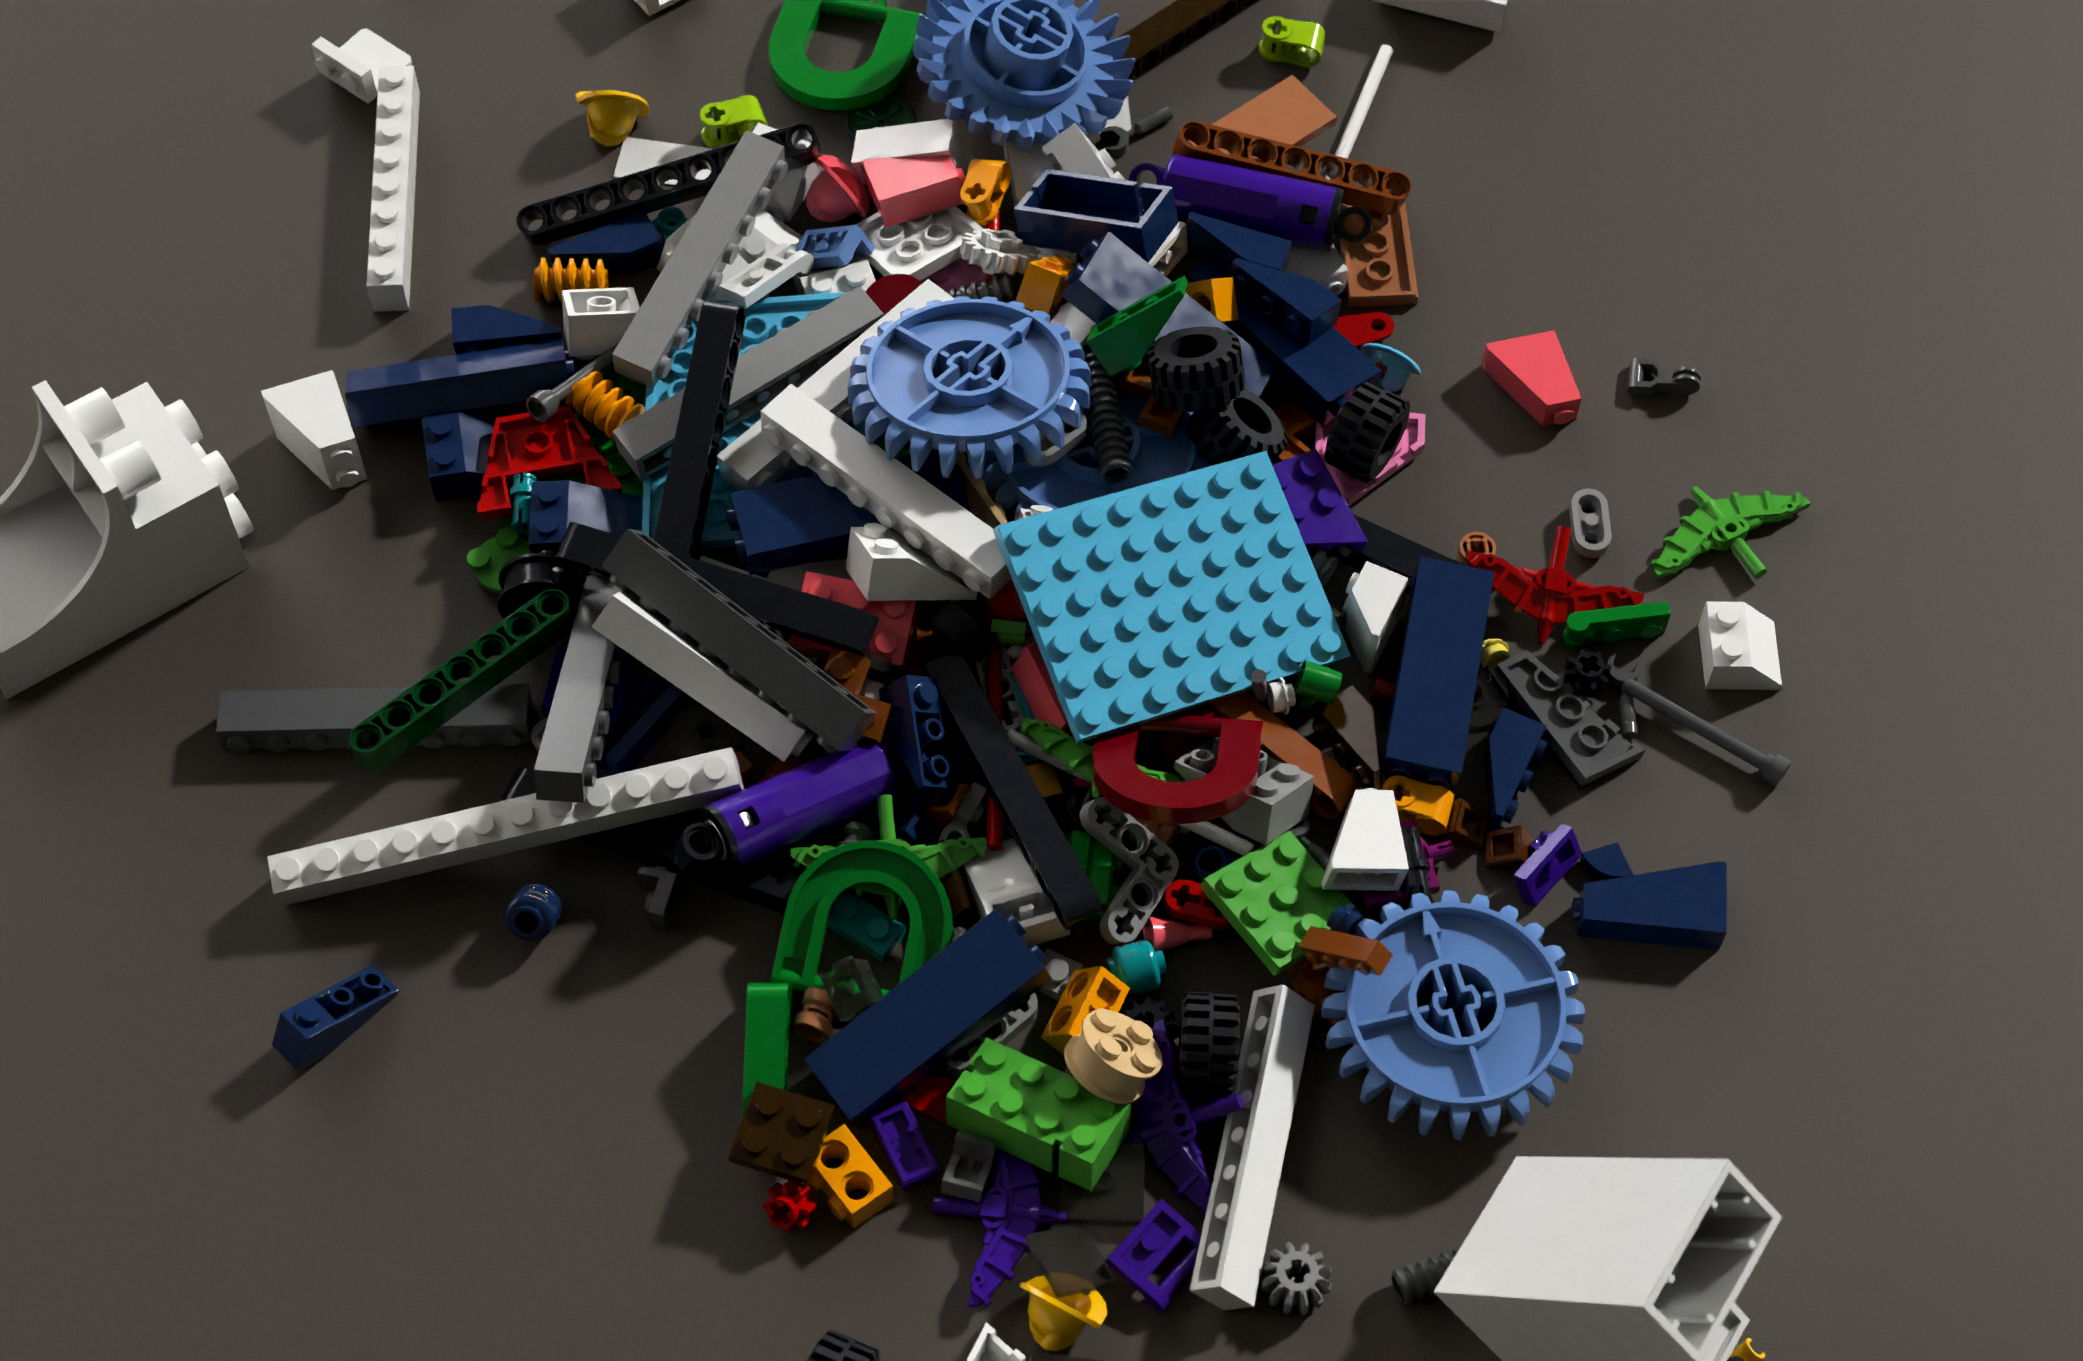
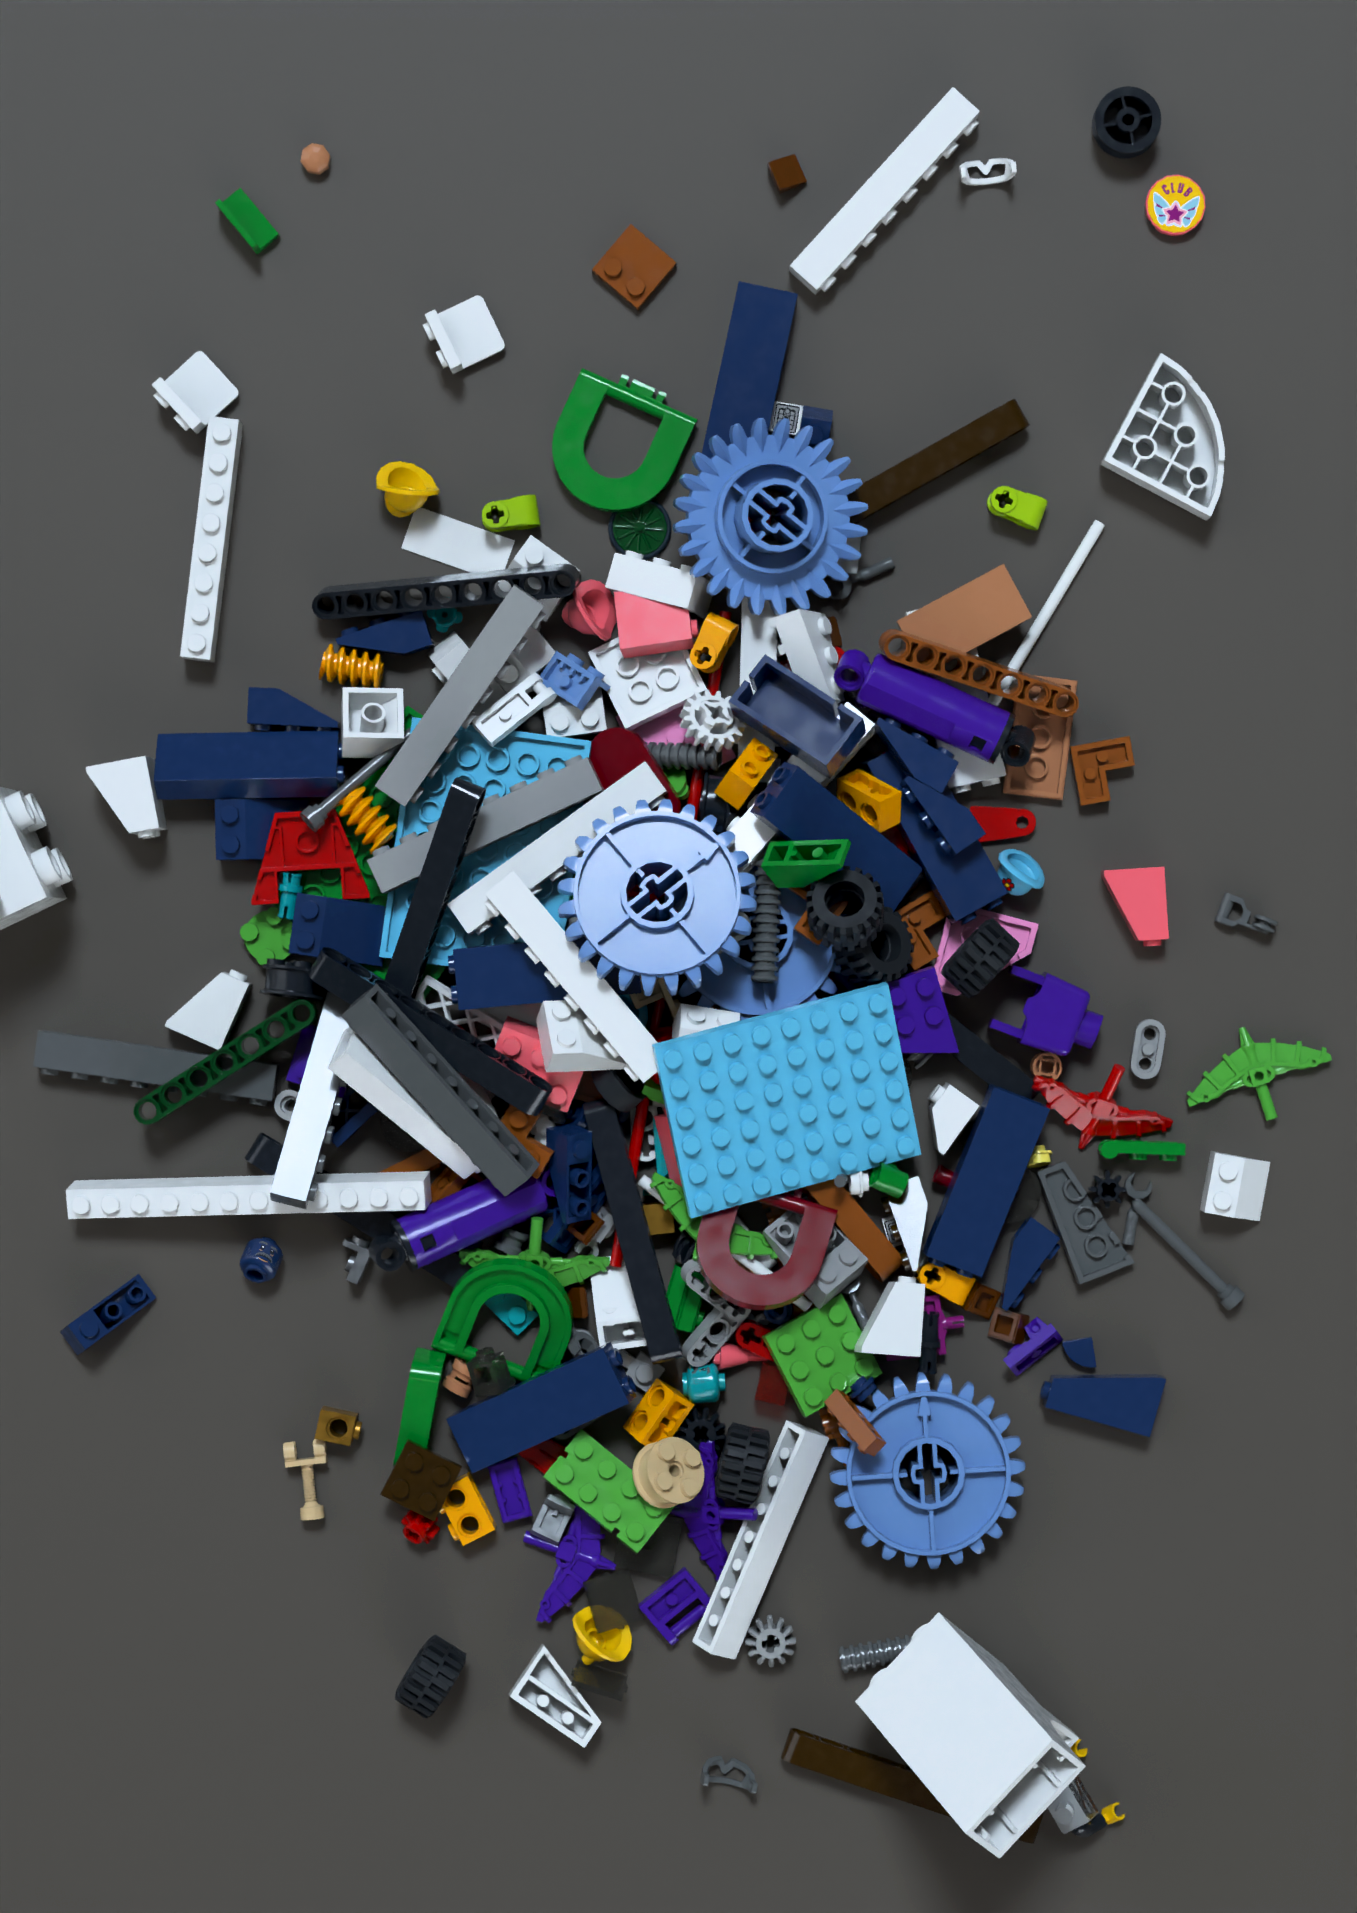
camera: 15 degrees right, 30 degrees up
(435, 640) = (212, 1010): none -> white slope
(638, 1215) = (311, 1509): none -> tan bar
(649, 1087) = (324, 1427): none -> pearl gold brick
(1225, 958) = (770, 1385): none -> clear red panel
(1443, 259) = (1092, 761): none -> dark orange plate
(1471, 492) = (1054, 1015): none -> dark purple piece

